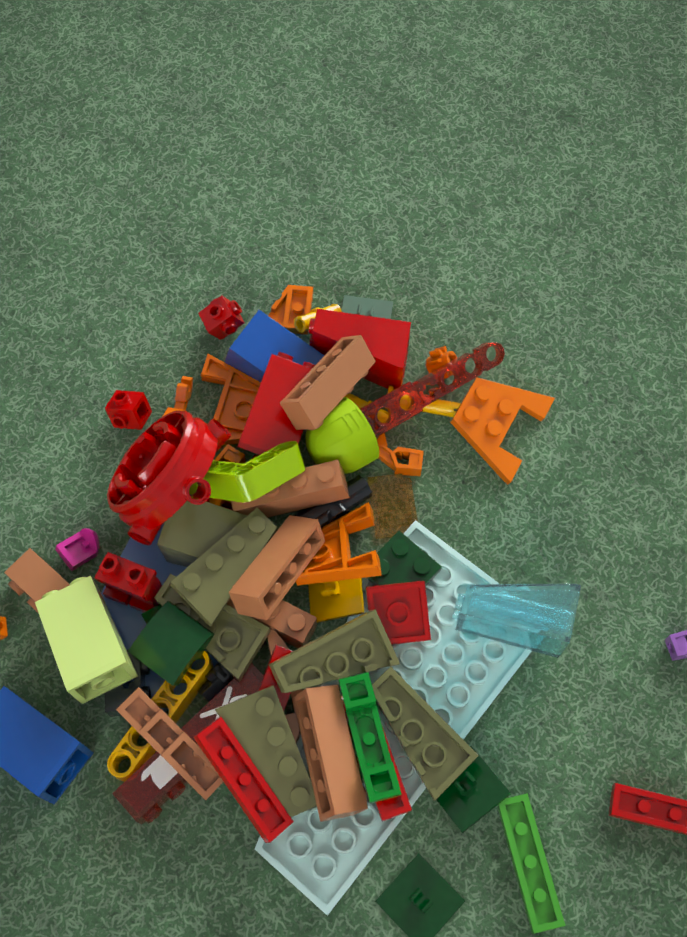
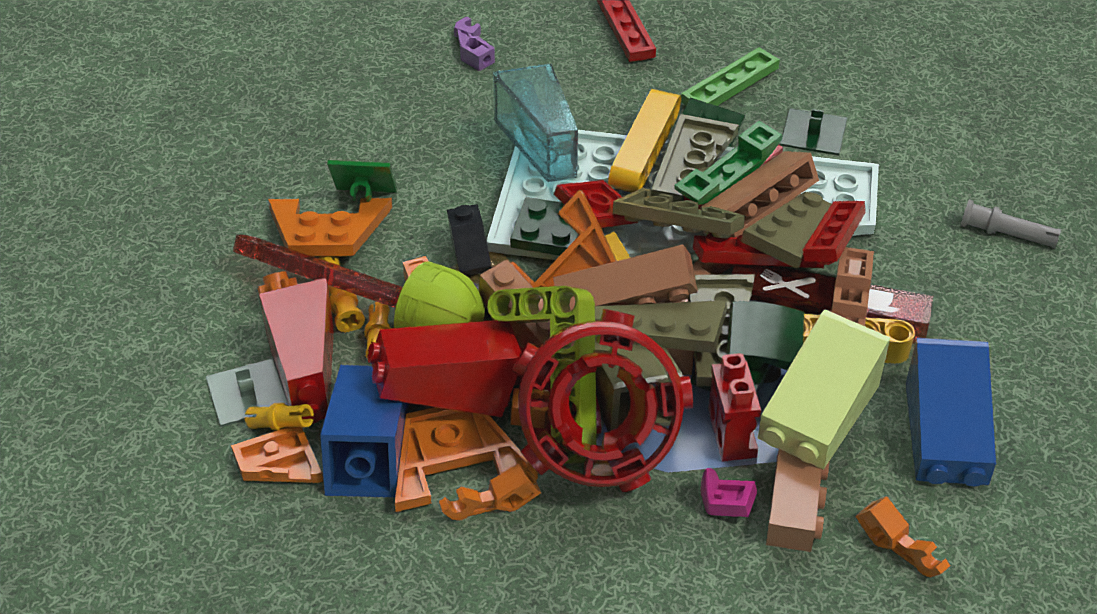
camera: 120 degrees left, 20 degrees down
(128, 409) = (528, 536): red brick -> none
(221, 317) = (333, 509): red brick -> none
(328, 383) = (393, 309): nougat brick -> none
(423, 505) = (469, 239): none -> black slope
(463, 706) = (644, 141): none -> yellow beam
(533, 460) = (362, 177): none -> green piece

